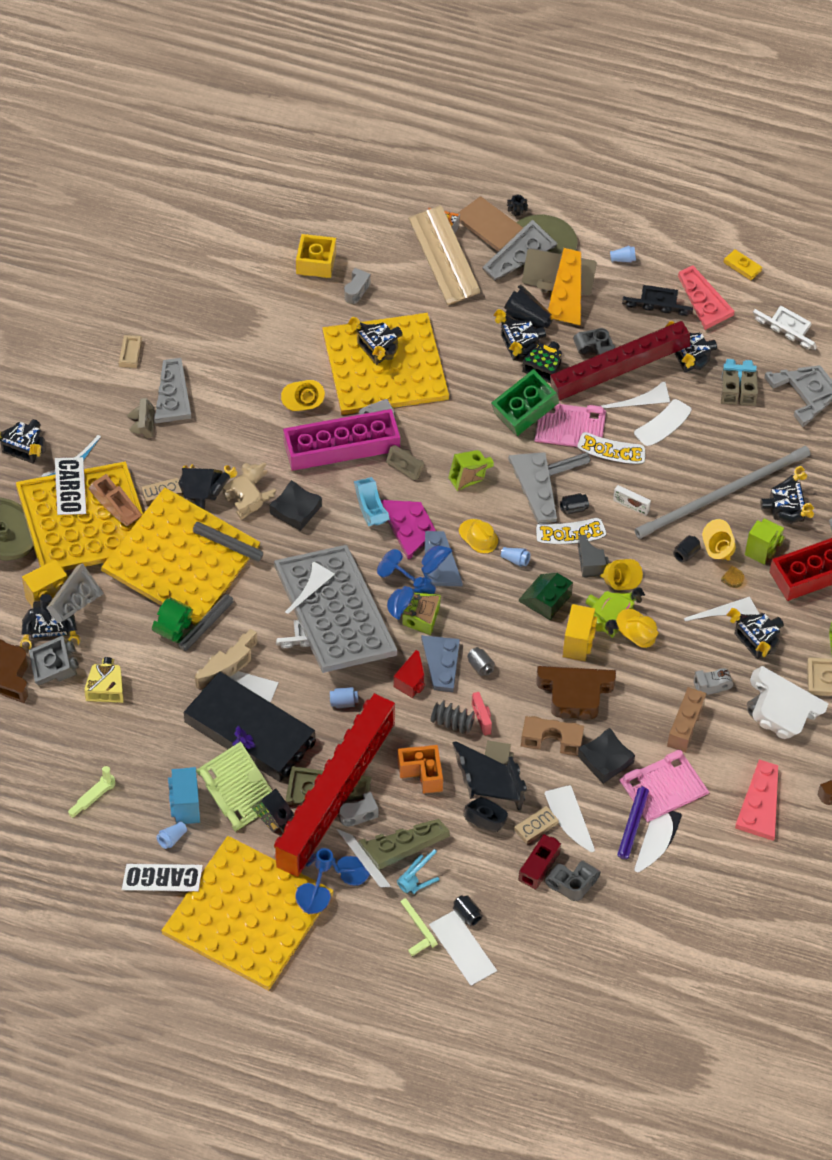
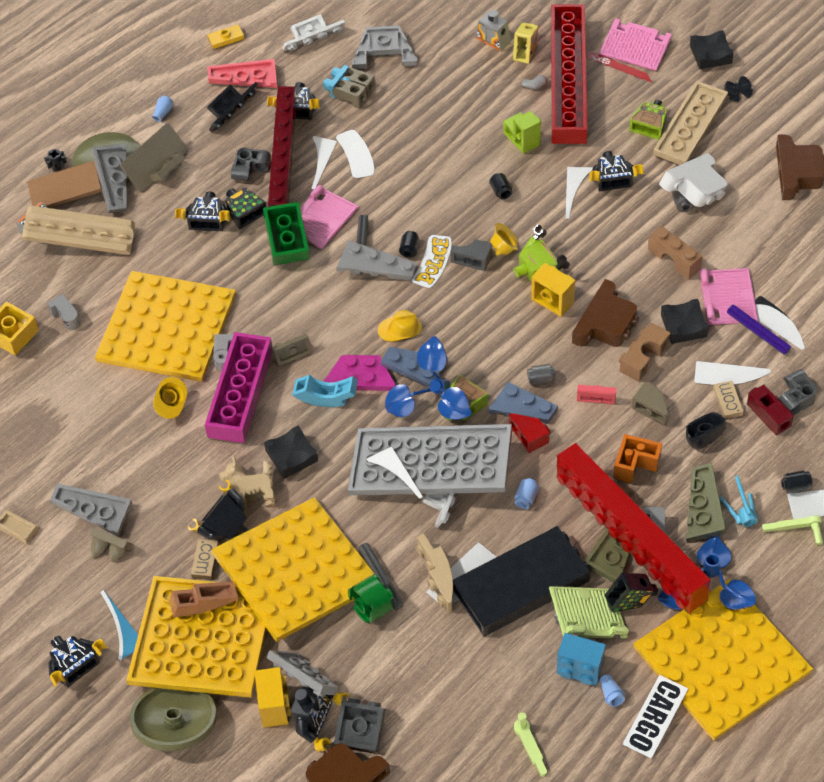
camera: 60 degrees left, 0 degrees up
(70, 486) = (158, 633): sticker -> none
(104, 682) = (408, 686): light yellow torso -> none
(228, 541) = (305, 519): dark grey axle -> none
(243, 738) = (544, 586): dark purple plant -> none
(365, 860) = (714, 539): white sticker -> none
(376, 339) = (147, 315): torso -> none
(452, 717) = (591, 415): dark grey piece -> none
(468, 468) = (330, 297): lime torso -> none
(489, 777) = (673, 409): black piece -> none
(516, 555) = (441, 306): light blue cone -> none
(525, 306) = (179, 195): black cone -> none
(547, 594) = (494, 299): dark green slope -> none
(566, 294) = (182, 157): light orange wing -> none
(612, 449) = (364, 198): sticker -> none
(631, 500) = (429, 203): white tile -> none
(637, 627) = (567, 245): yellow piece -> none
(650, 527) = (463, 207): light grey piece -> none
(713, 681) = (643, 221): light grey leg -> none
(719, 539) = (507, 159): yellow piece -> none
(733, 577) = (543, 168): clear yellow tile -> none
(759, 806) = (776, 239): coral wing -> none
(787, 500) = (491, 101): torso -> none

